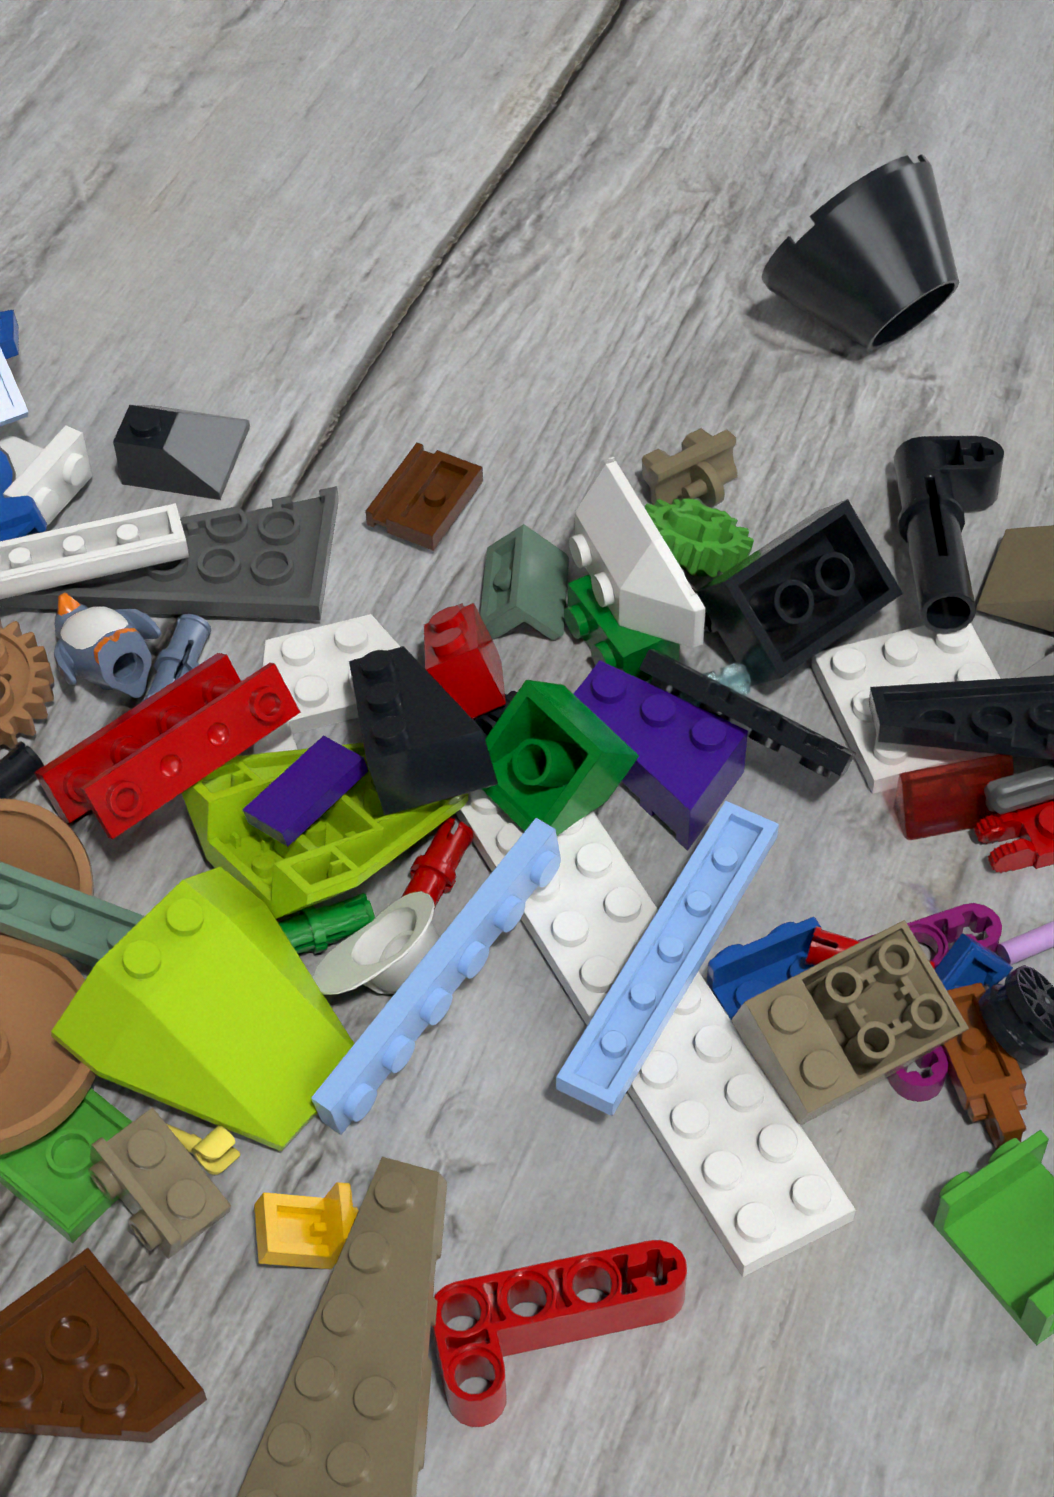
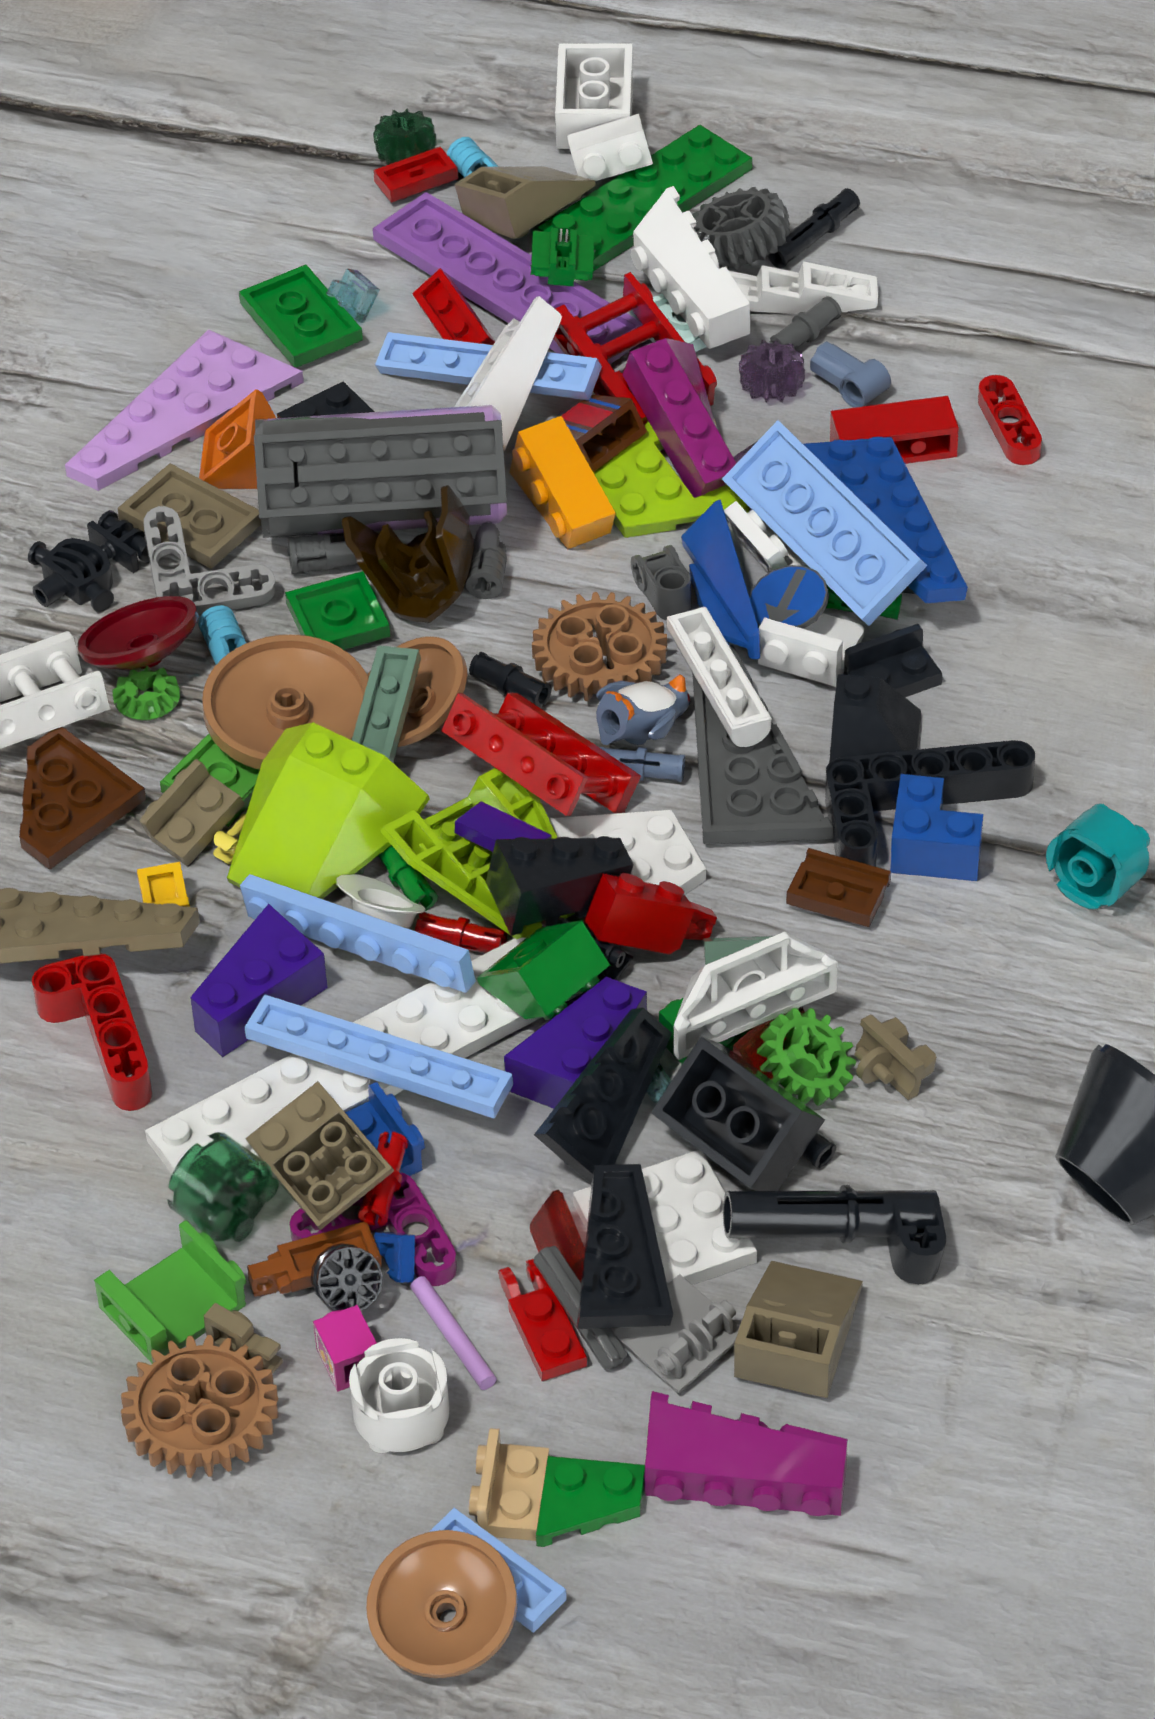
camera: 85 degrees right, 5 degrees down
(84, 407) = (895, 659): none -> black bracket
(272, 454) = (871, 783): none -> black beam
(361, 410) = (933, 839): none -> blue brick
(441, 264) = (1098, 857): none -> teal brick
(496, 1105) = (265, 960): none -> dark purple wedge
(888, 1149) = (221, 1188): none -> clear green brick

